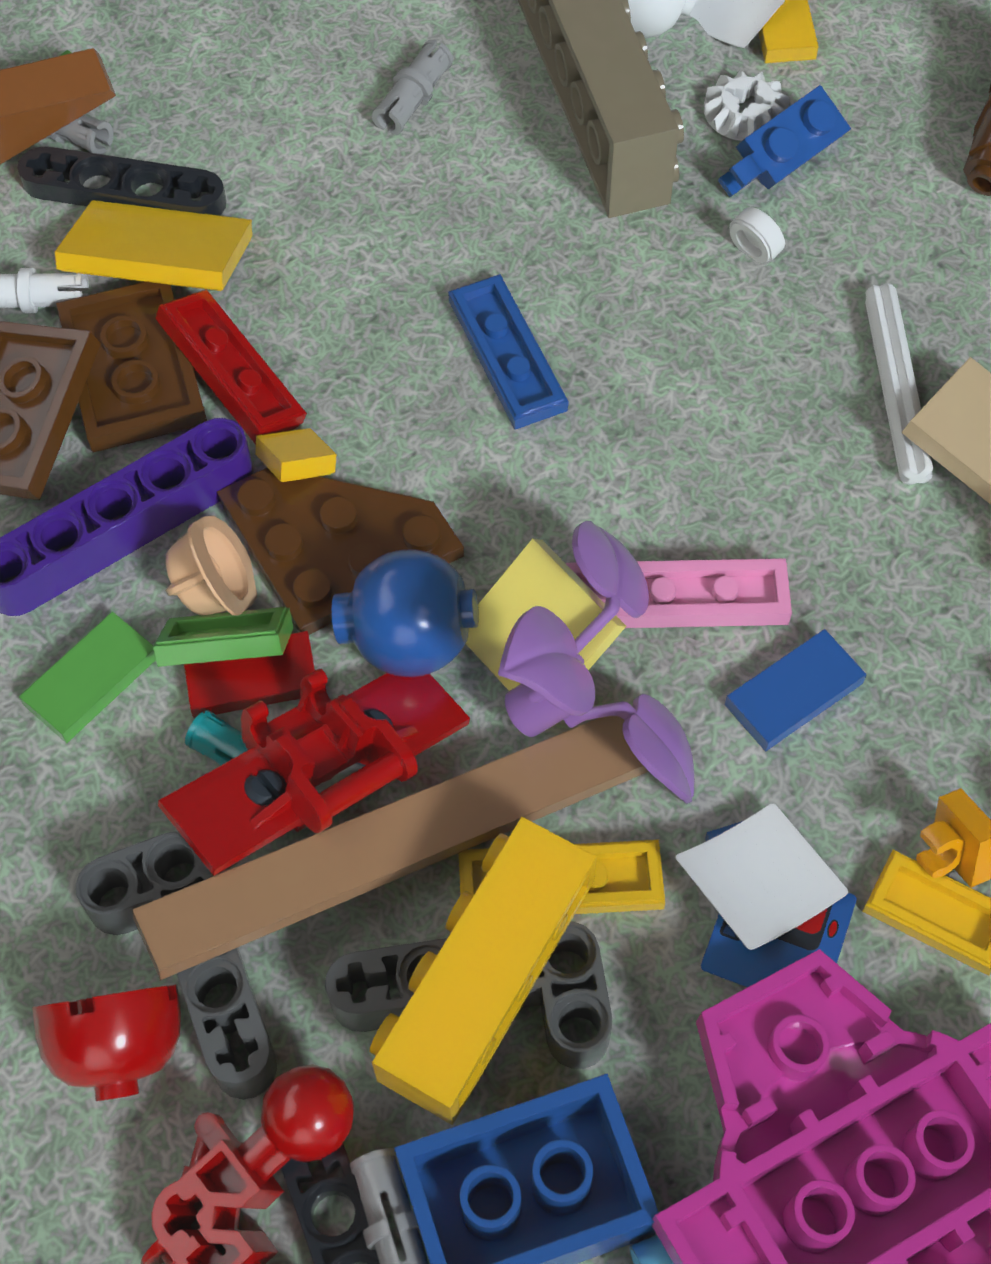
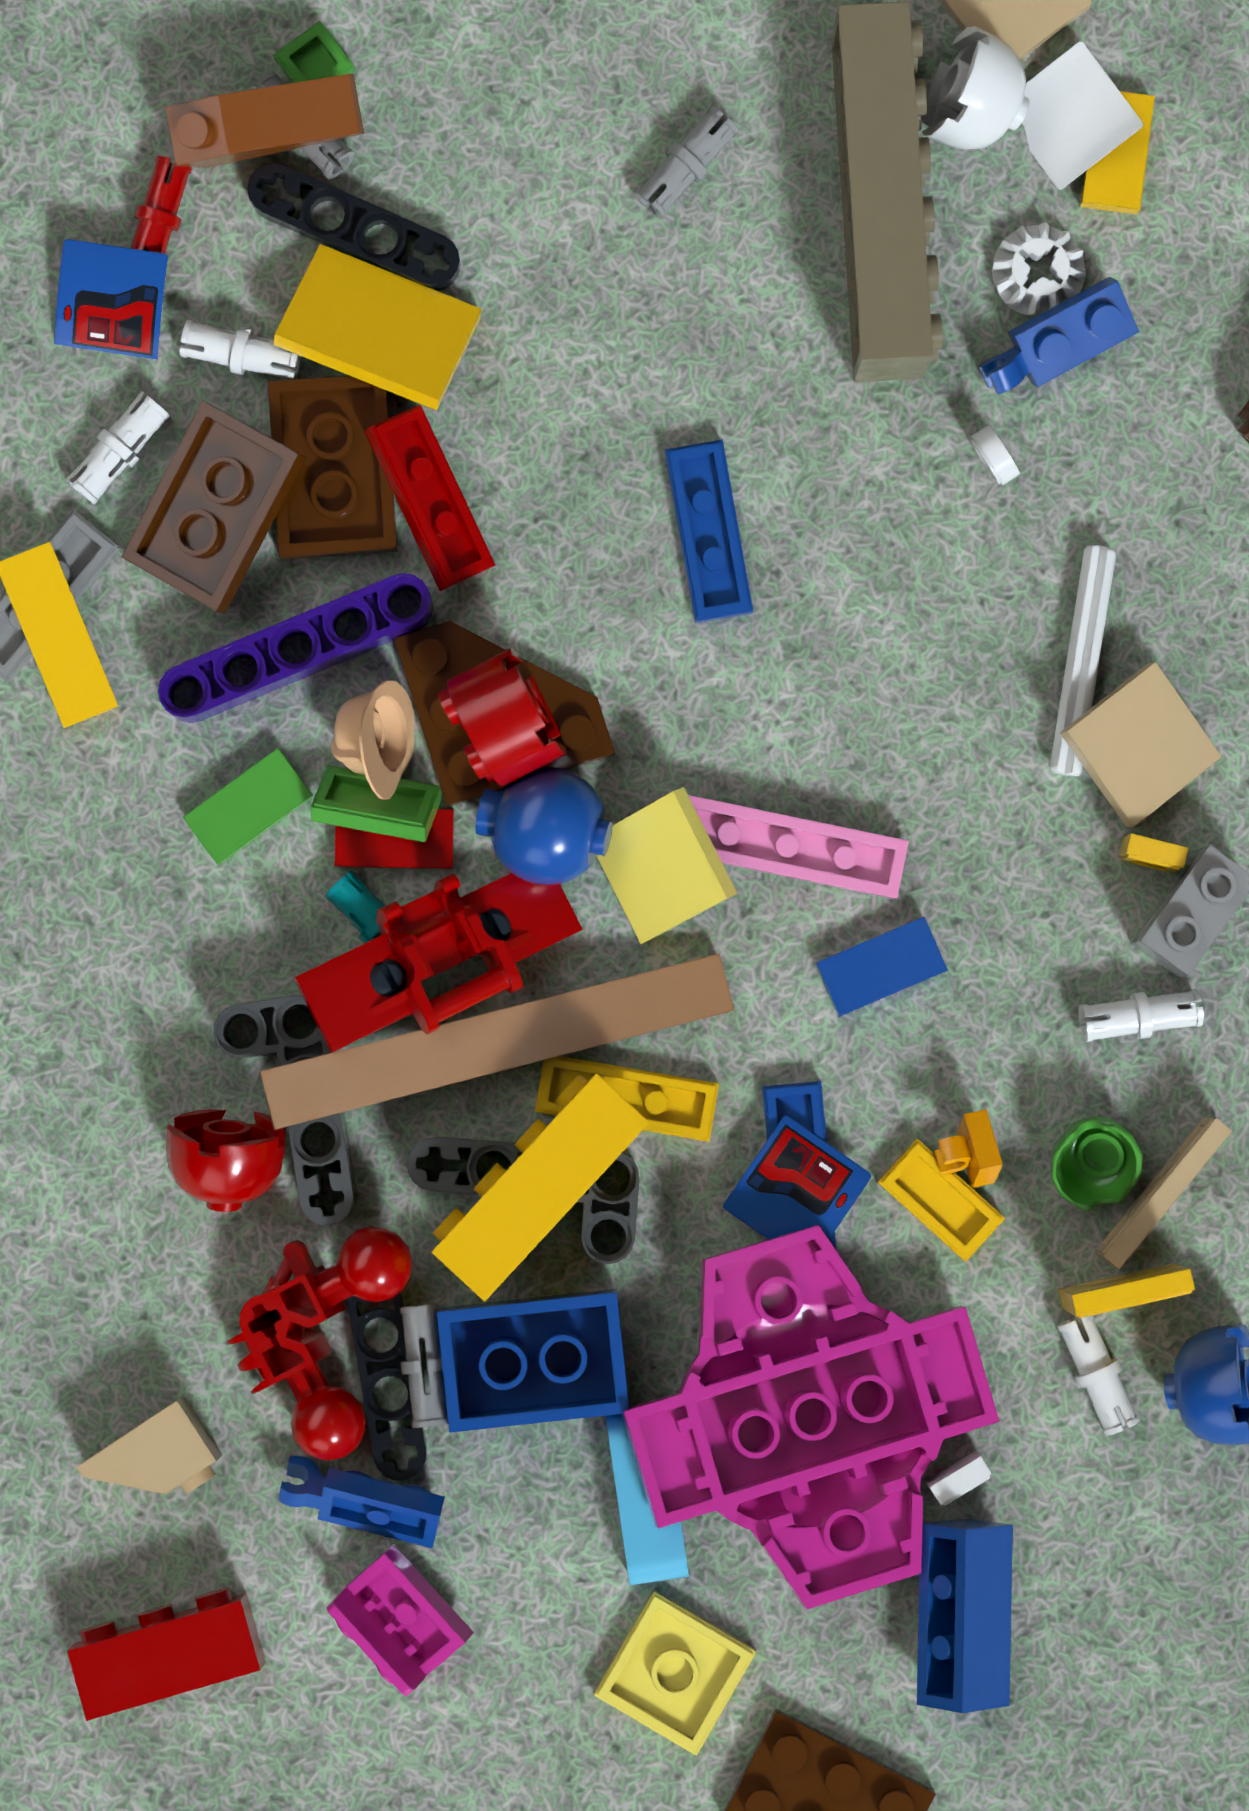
camera: 10 degrees right, 25 degrees up
(295, 454) = (475, 616): yellow tile -> none
(340, 507) = (503, 719): none -> red brick
(560, 687) = (648, 948): medium lavender plant -> none
(762, 877) = (794, 1142): white sticker -> none

